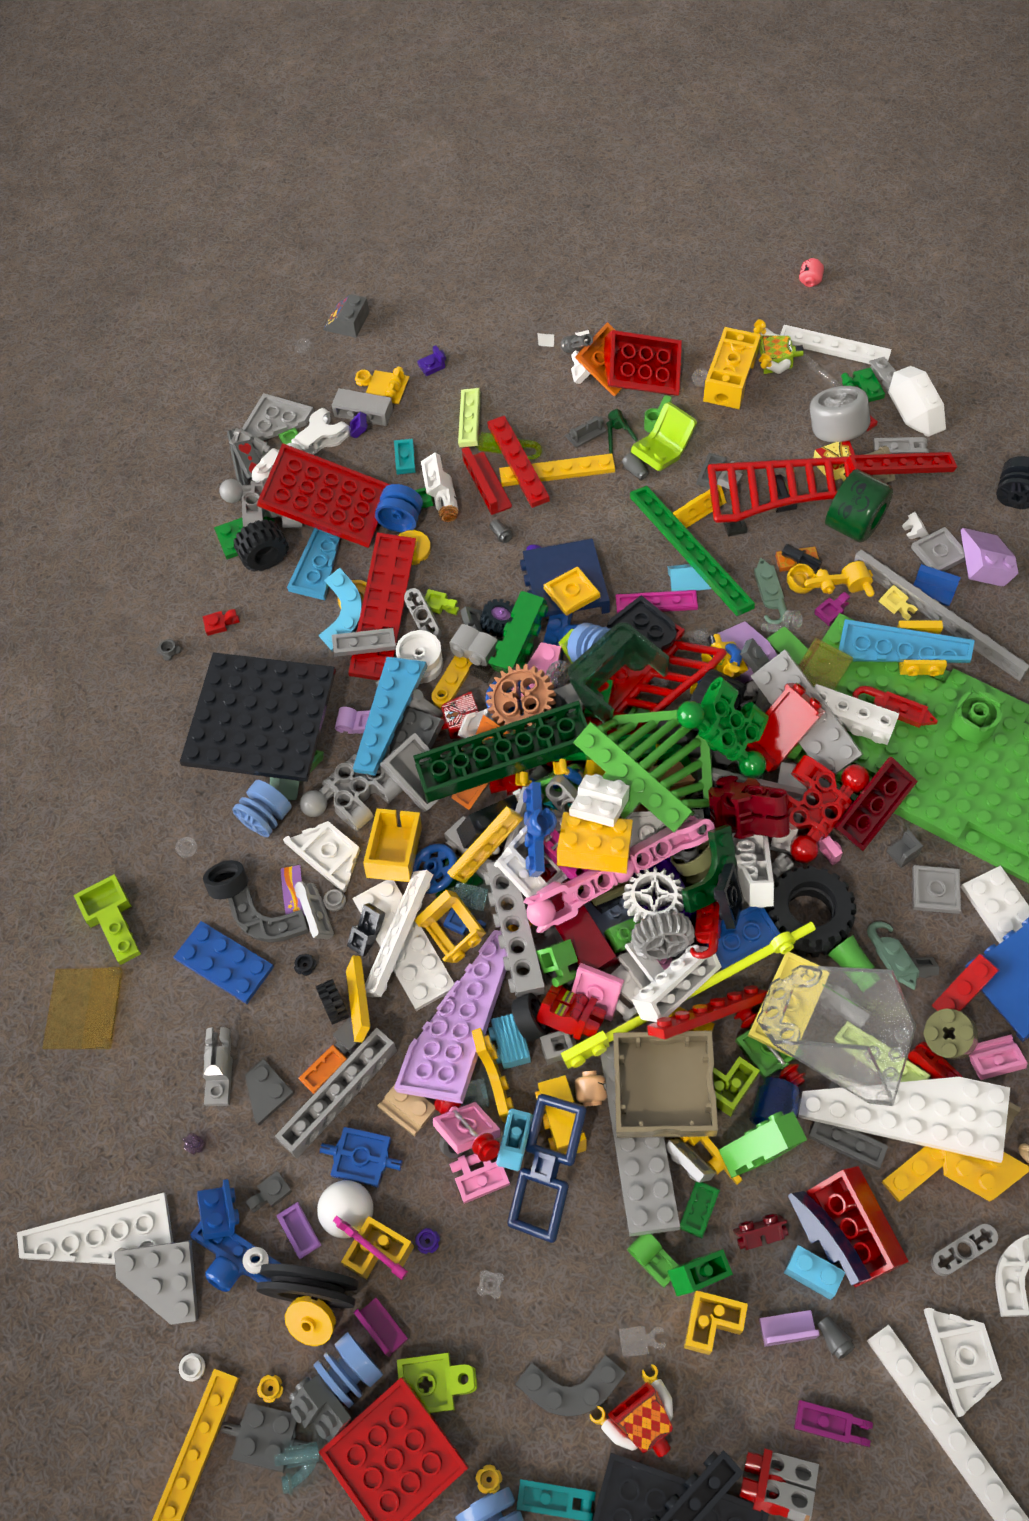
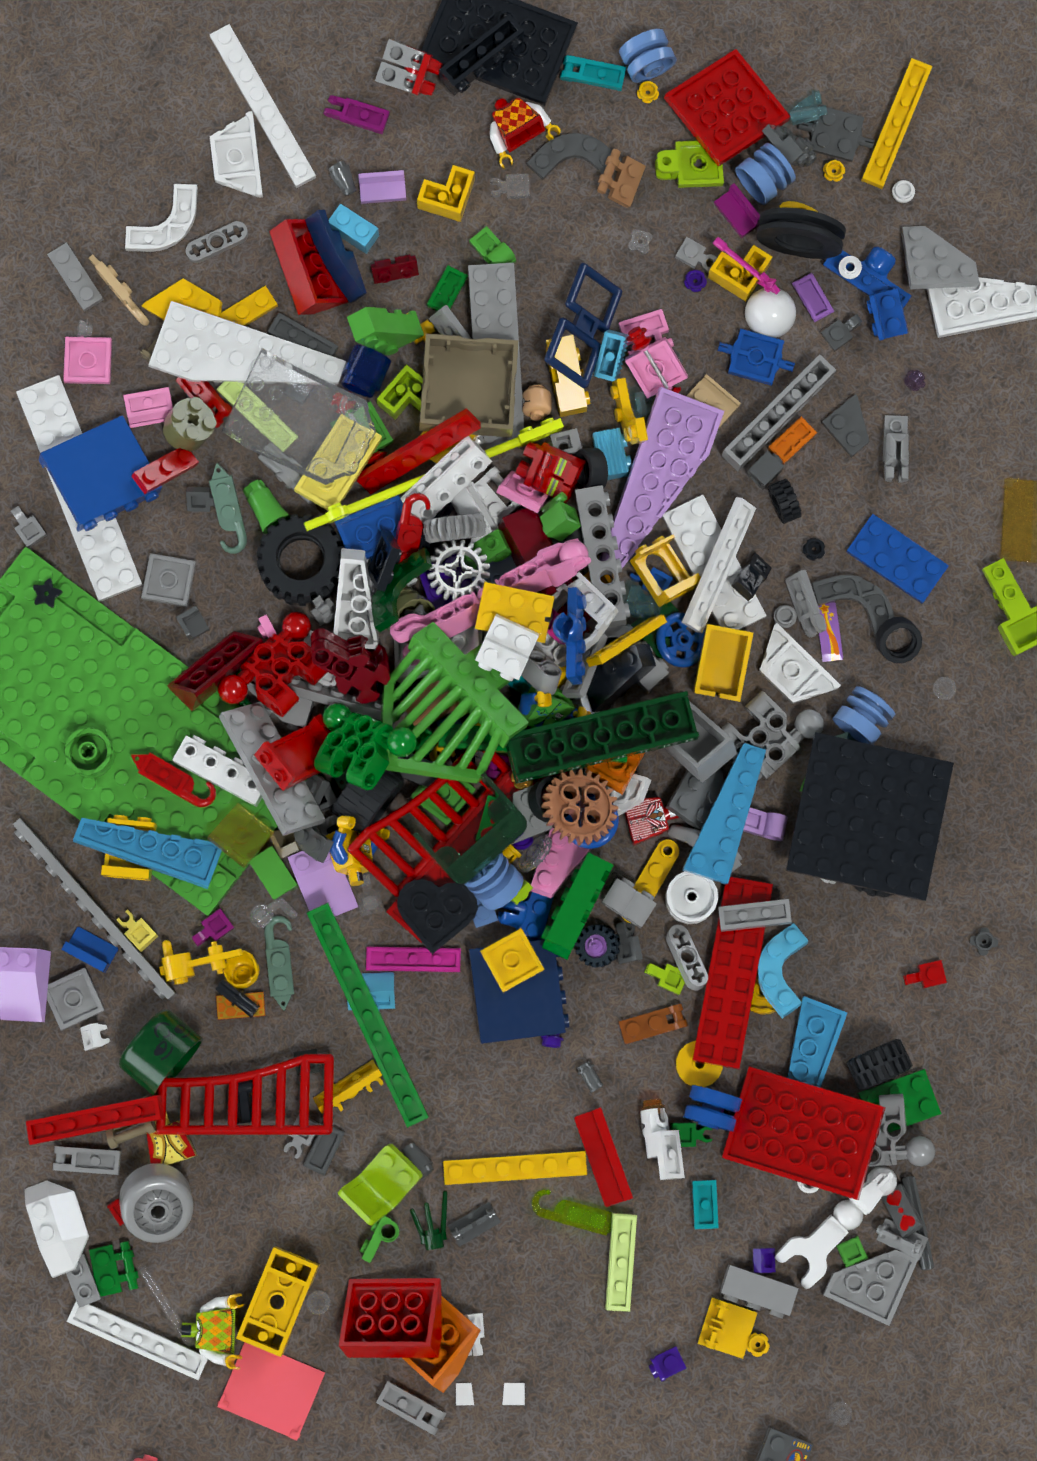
camera: 175 degrees right, 20 degrees up
(357, 999) = (759, 498): yellow tile -> none
(431, 1273) = (693, 254): none -> light grey plate
(450, 571) = (652, 1024): none -> dark orange plate
(509, 1357) = (626, 181): none -> medium nougat plate
(518, 461) = (563, 1176): red plate -> none
(574, 339) = (477, 1364): dark grey pin -> none
(621, 322) = (410, 1407): none -> light grey plate
(700, 1272) = (454, 230): green brick -> none
(715, 317) = (271, 1390): none -> coral piece

